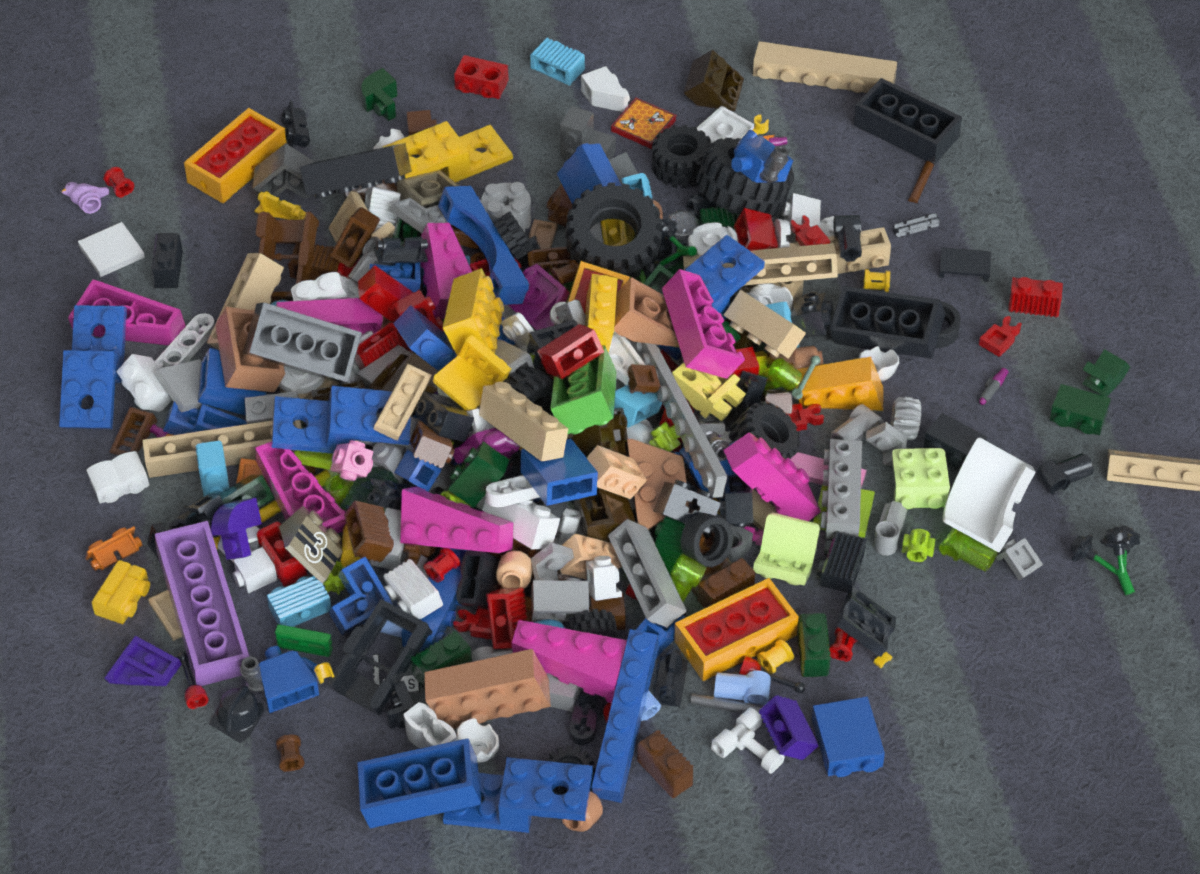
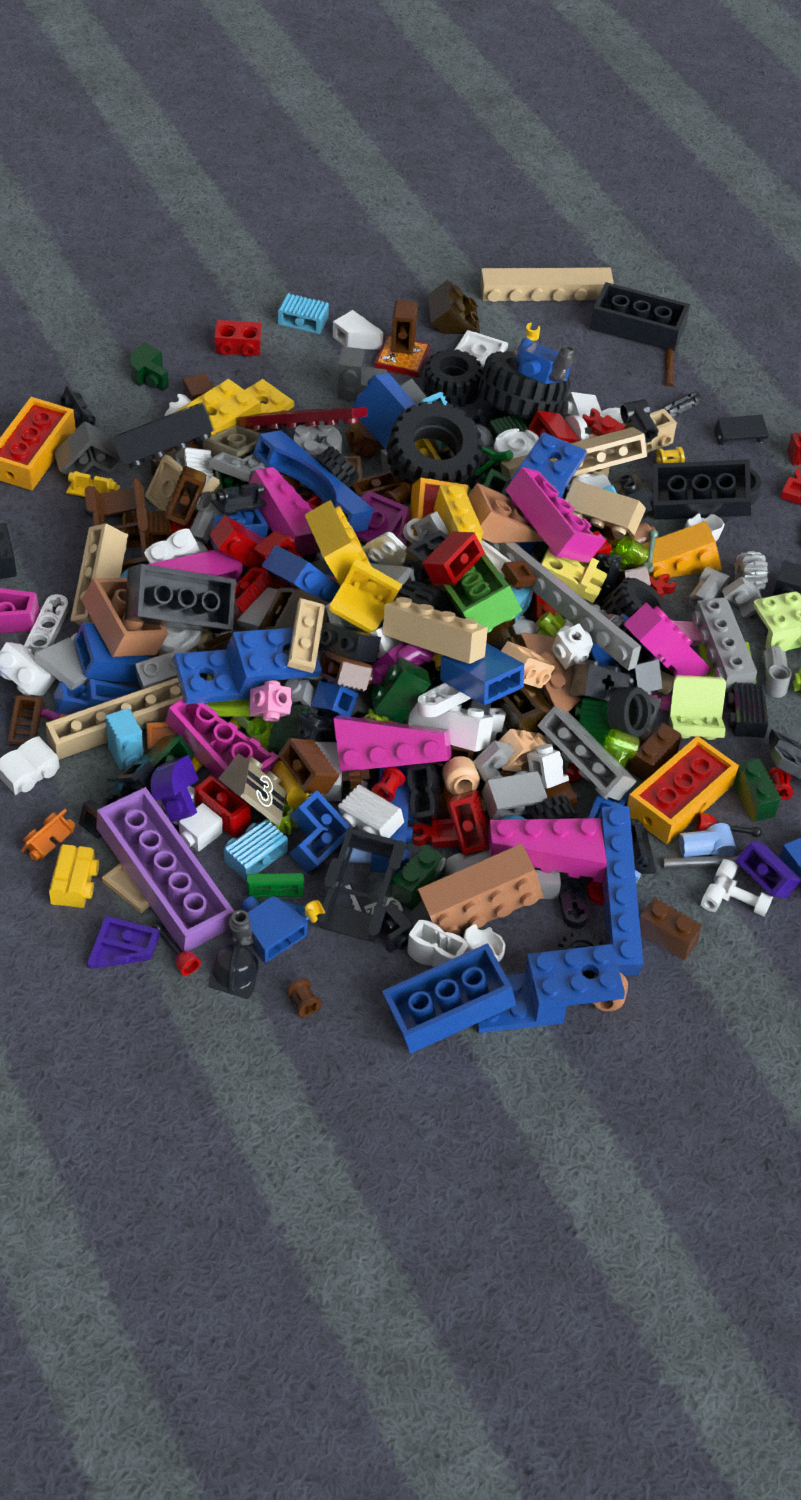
camera: 20 degrees left, 0 degrees up
(497, 174) = (307, 417): none -> dark red wing
(647, 93) = (404, 326): none -> reddish brown brick
(669, 461) = (572, 645): none -> white brick
(775, 656) = (725, 807): yellow bush -> none

